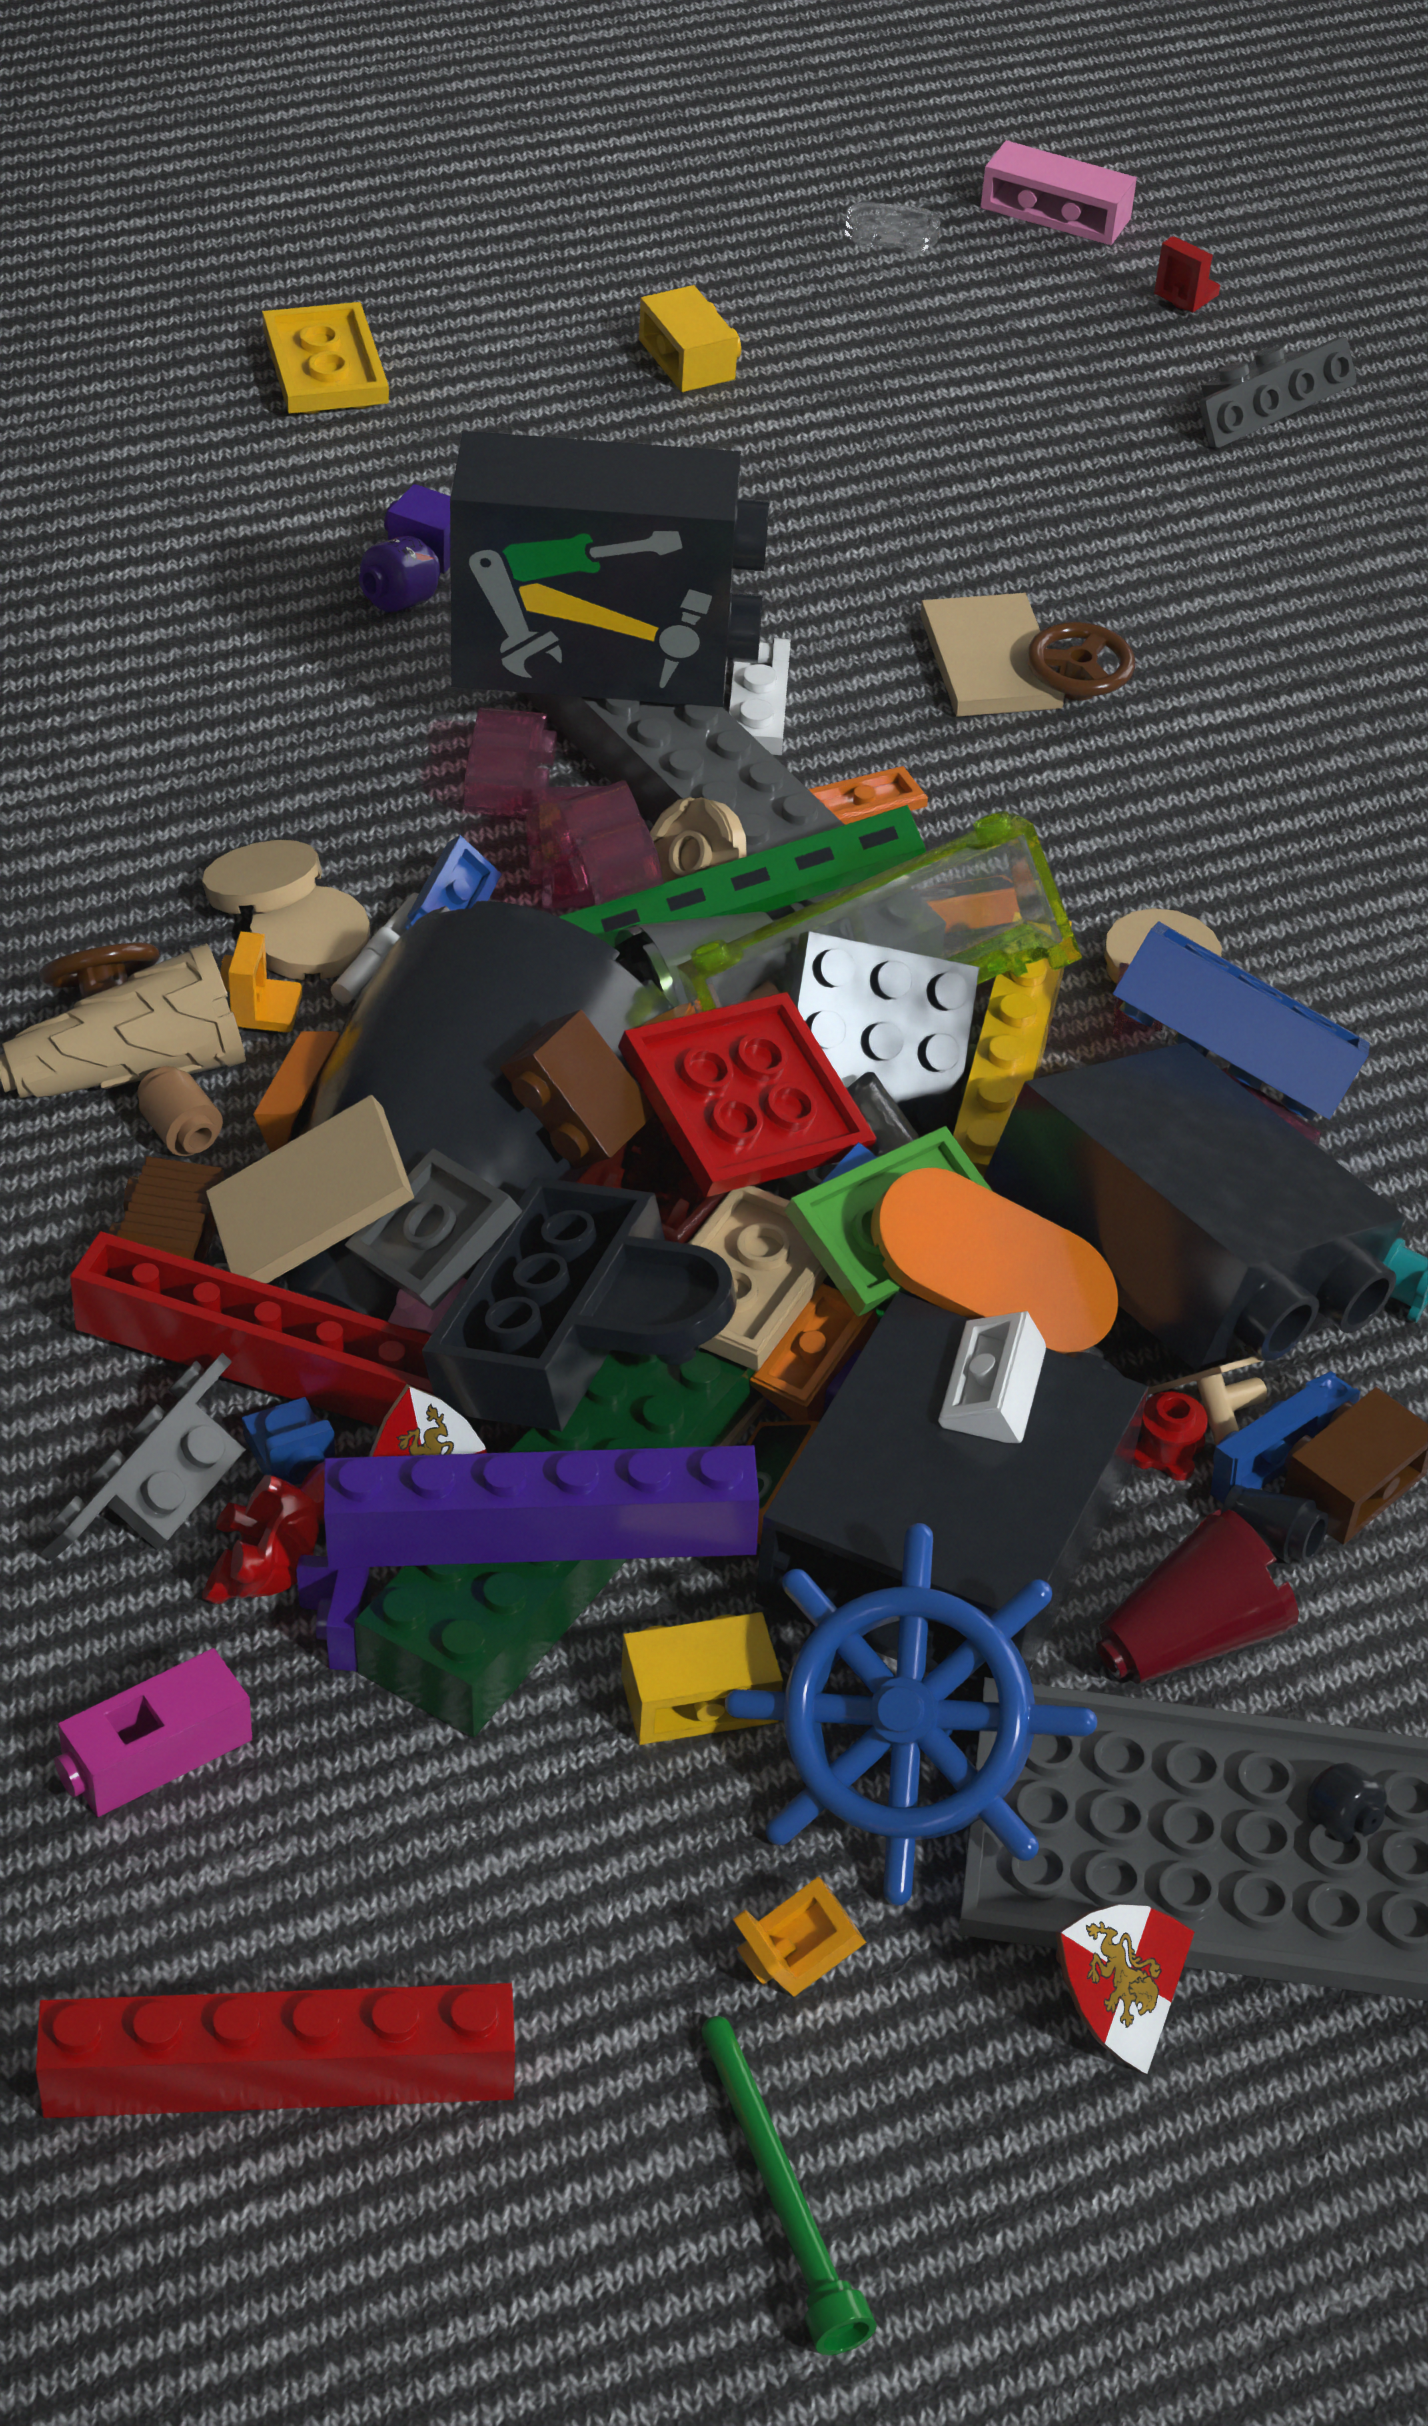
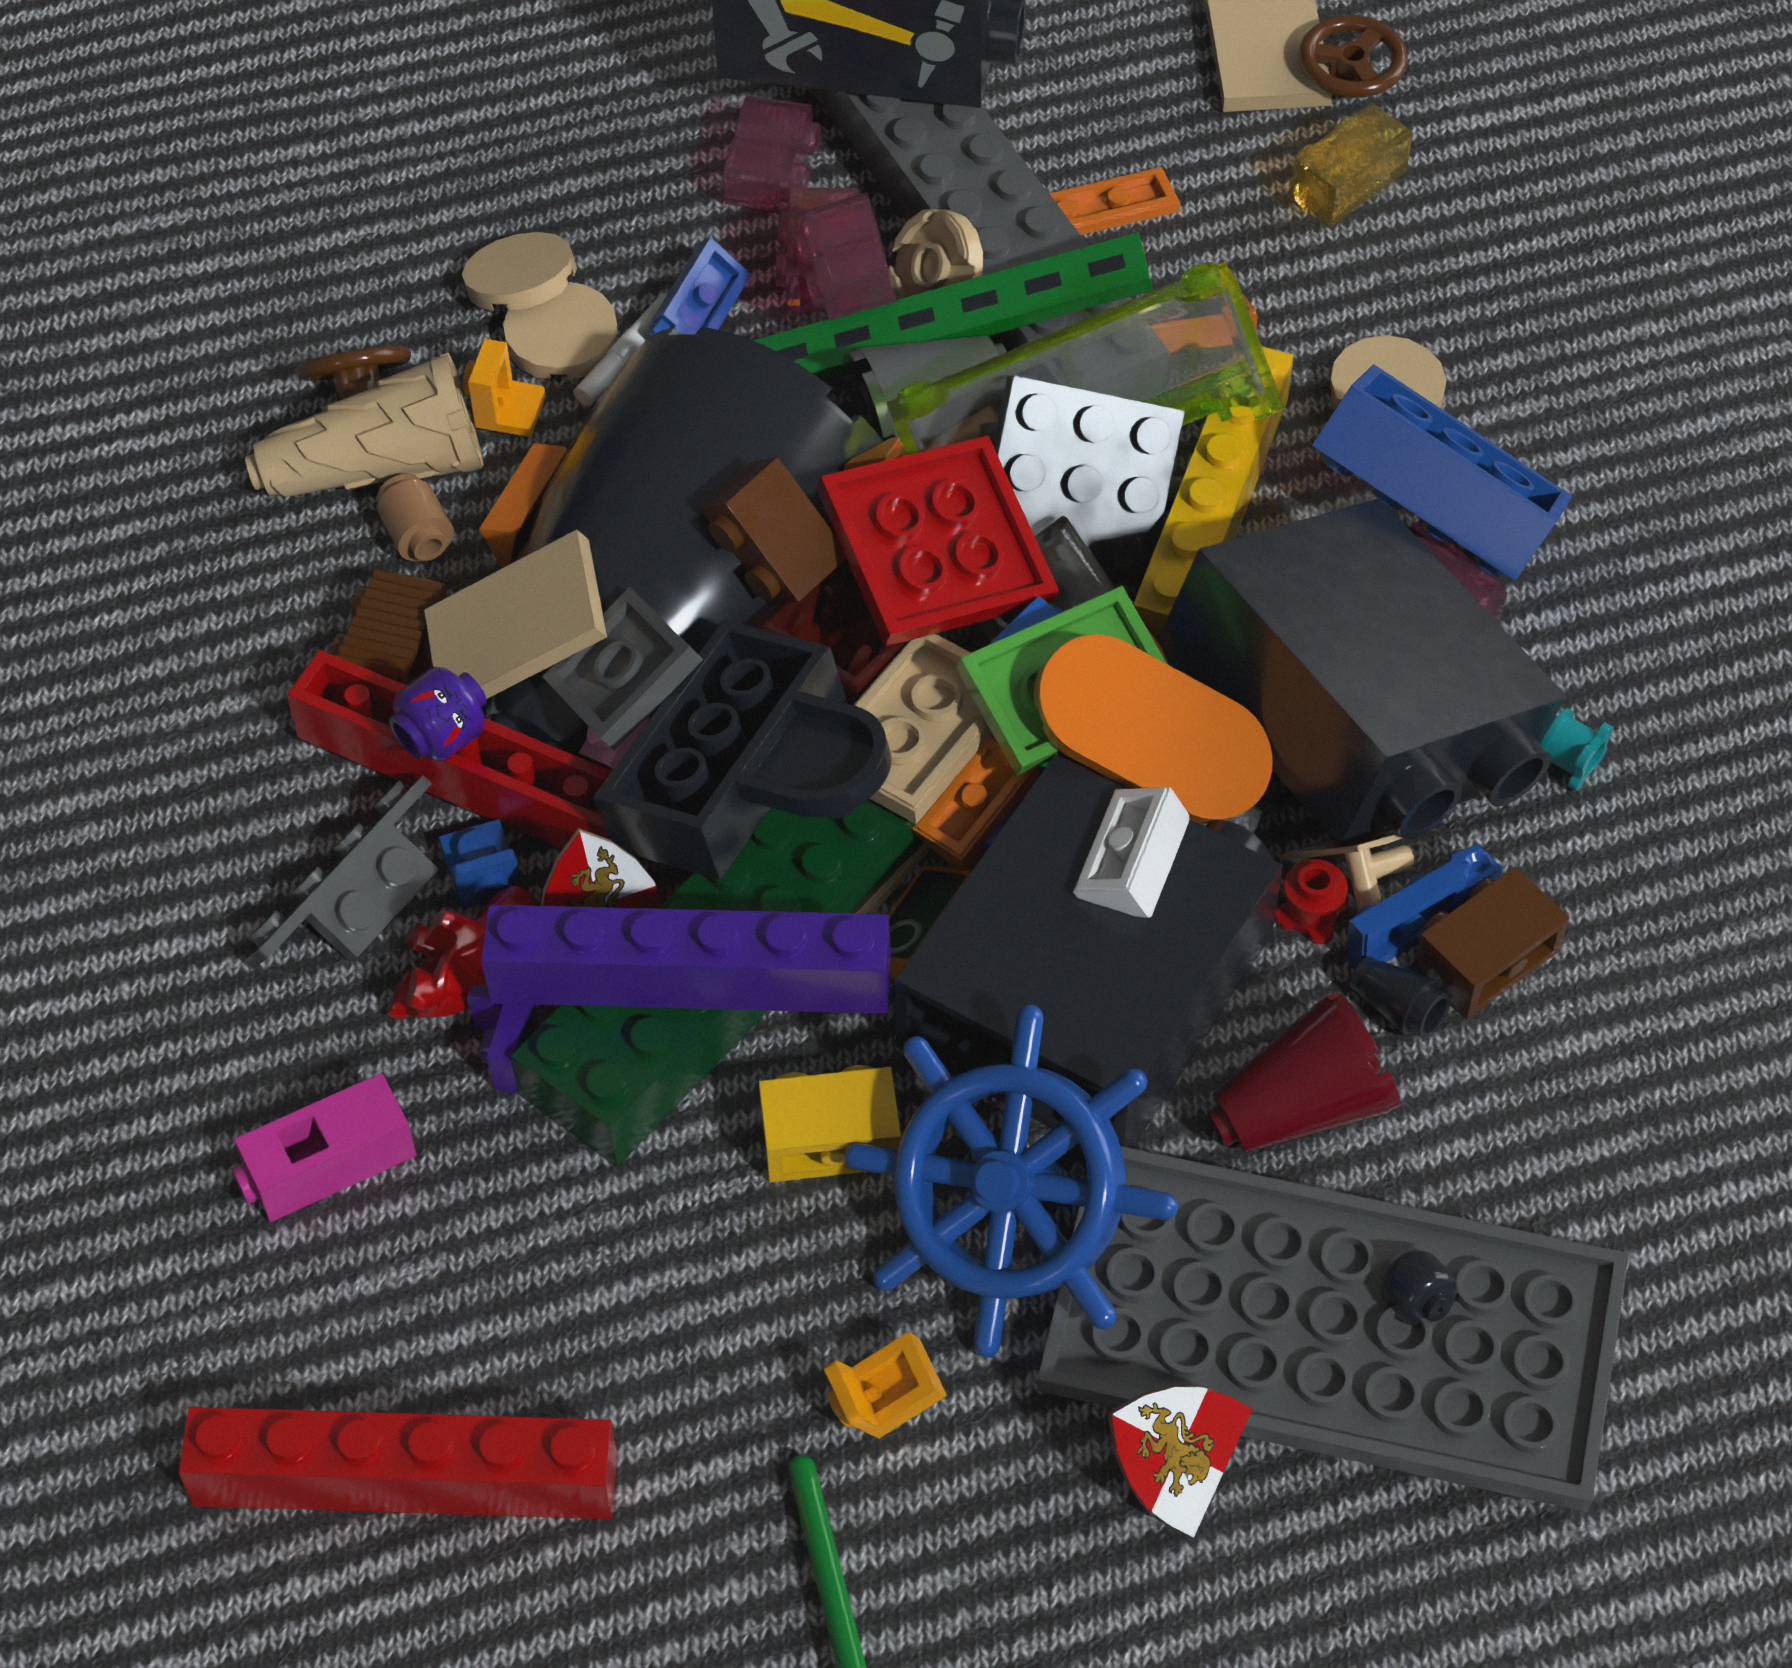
camera: 10 degrees right, 10 degrees up
(241, 1281) = (438, 714): none -> dark purple head
(760, 694) = (1029, 87): white plate -> none
(1093, 756) = (1350, 164): none -> clear yellow brick

